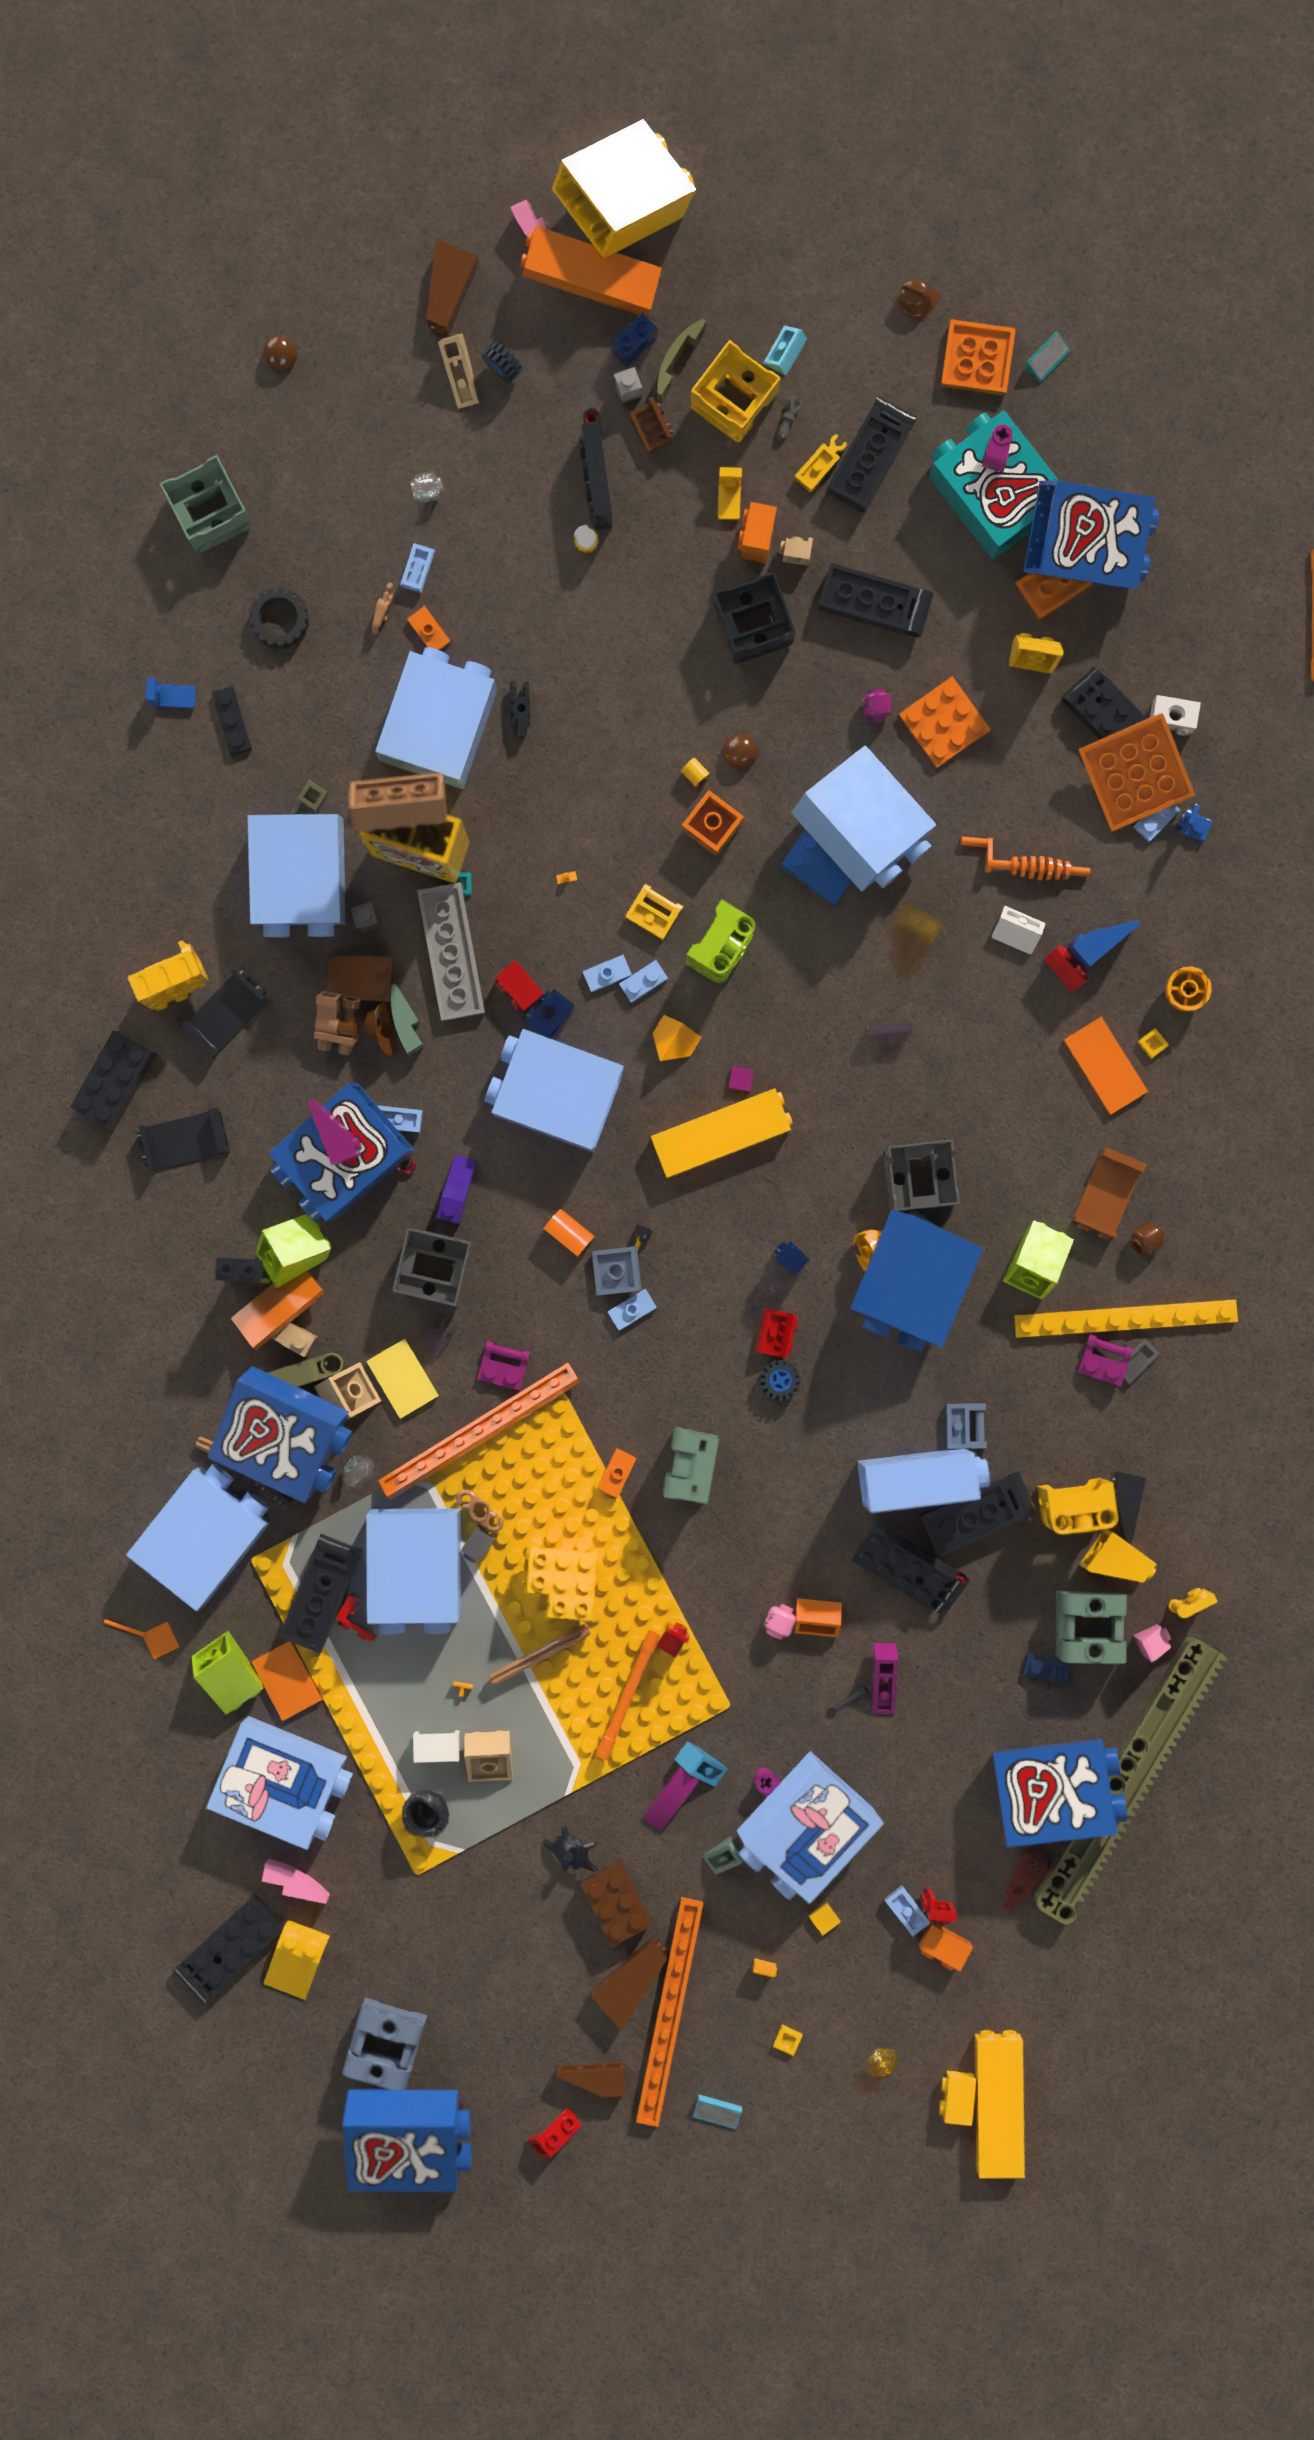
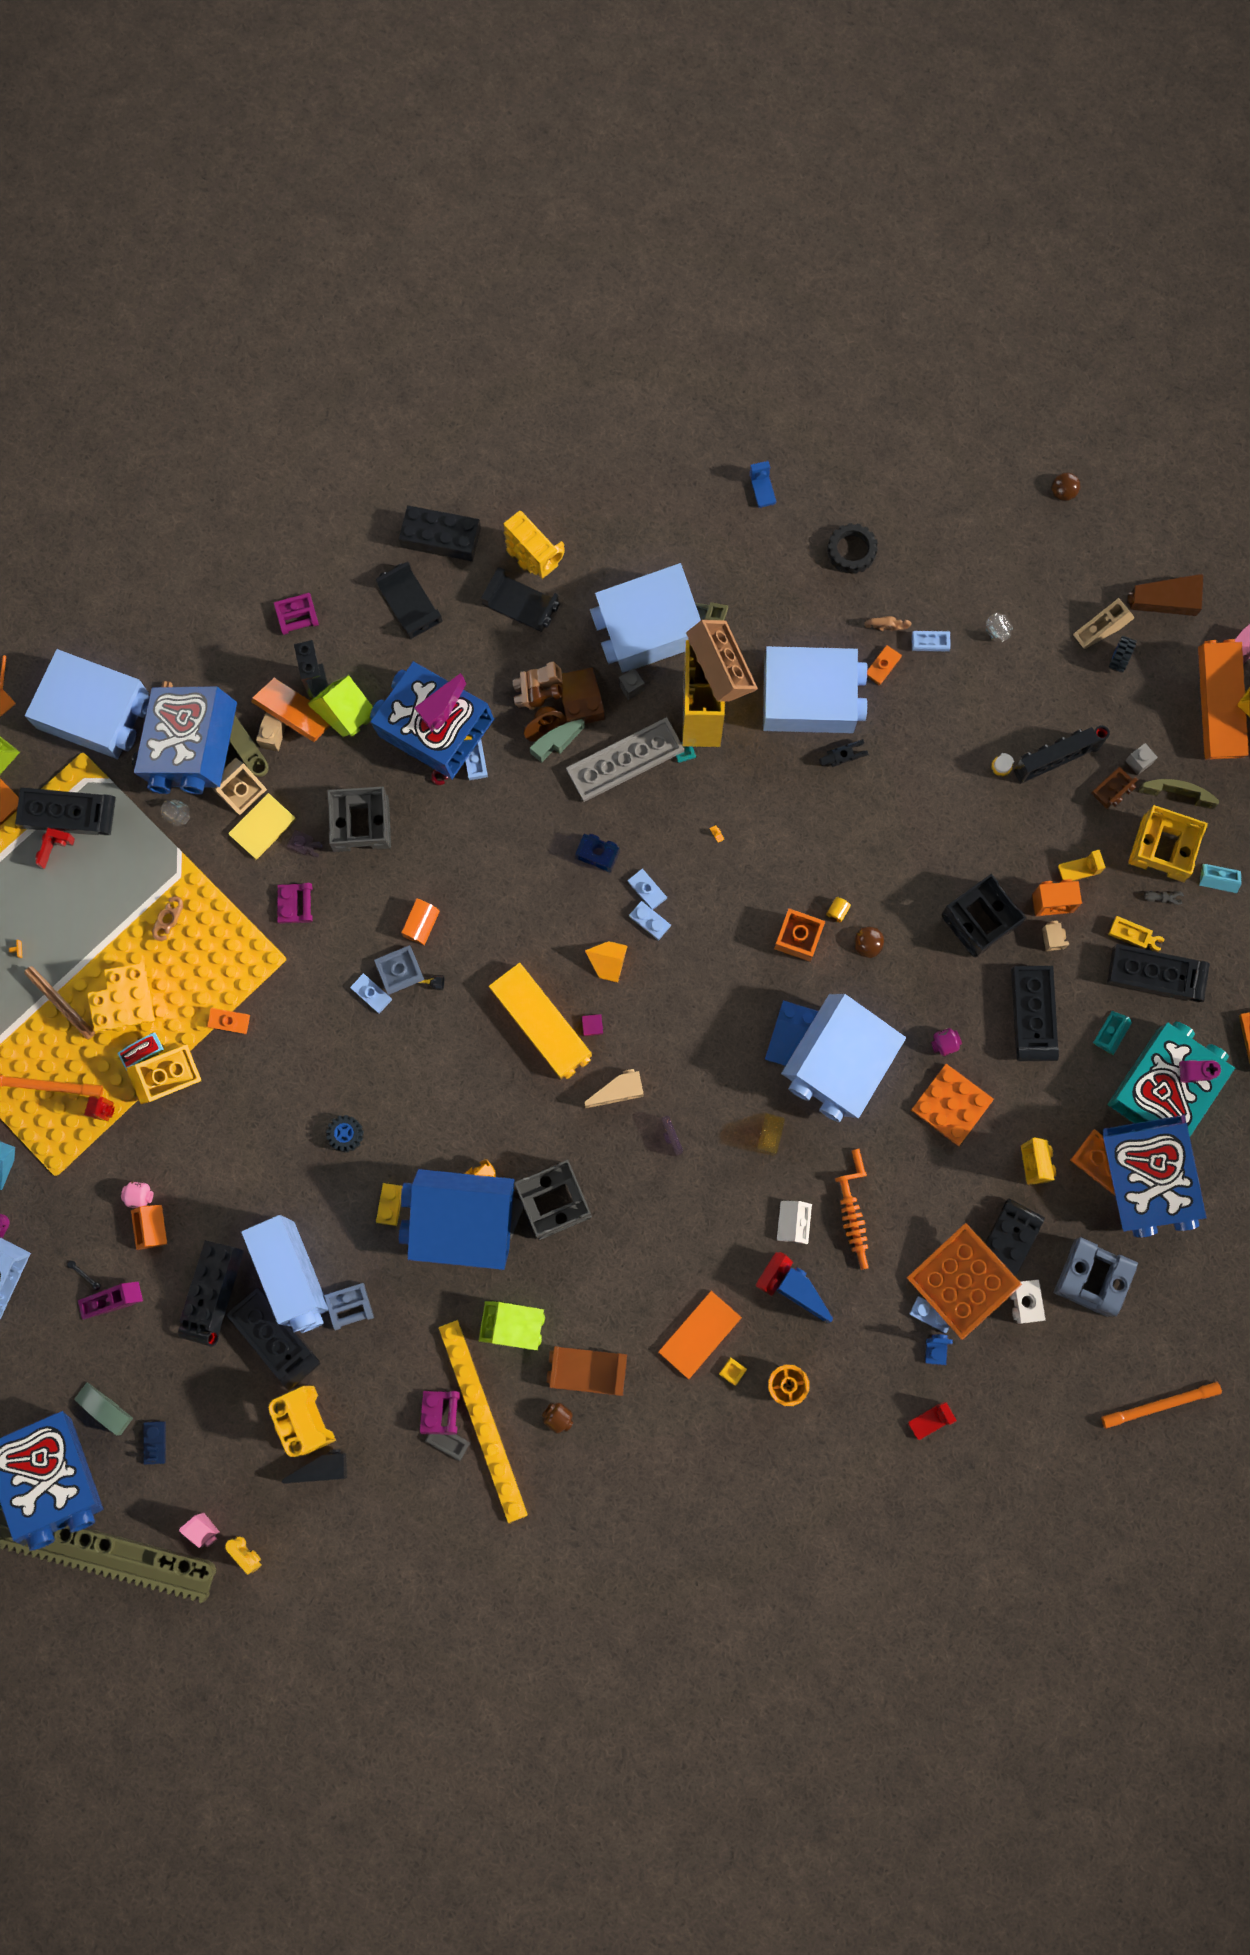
camera: 75 degrees right, 10 degrees down
(152, 1272) = (293, 608): none -> magenta plate
(216, 526) = (924, 445): sand green piece -> none
(232, 720) = (758, 538): black plate -> none
(414, 1568) = (104, 877): light blue brick -> none
(456, 1189) = (428, 821): dark purple slope -> none
(477, 1545) = (138, 924): dark grey brick -> none
(478, 1431) = (234, 899): orange plate -> none
(519, 987) = (613, 821): red brick -> none
(554, 1089) = (534, 874): light blue brick -> none
(622, 1578) = (141, 1050): none -> slope
(634, 339) = (1181, 752): clear blue brick -> none
(649, 917) = (704, 909): yellow plate -> none
(657, 1559) = (163, 1074): none -> yellow slope
(691, 1465) = (249, 1077): sand green piece -> none
(722, 944) = (698, 970): lime piece -> none
(776, 1333) = (384, 1118): red bracket -> none
(790, 1257) = (450, 1108): clear blue brick -> none
(821, 1068) = (622, 1088): none -> tan slope
(870, 1353) = (389, 1204): none -> yellow plate
(918, 526) = (1112, 1032): none -> teal slope
(997, 1714) = (103, 1409): none -> sand green slope
(1076, 1649) = (175, 1458): sand green piece -> none
(1117, 1558) = (264, 1475): yellow slope -> none
(1198, 627) = (1109, 1299): none -> sand blue piece
(1263, 853) = (932, 1420): none -> red bracket

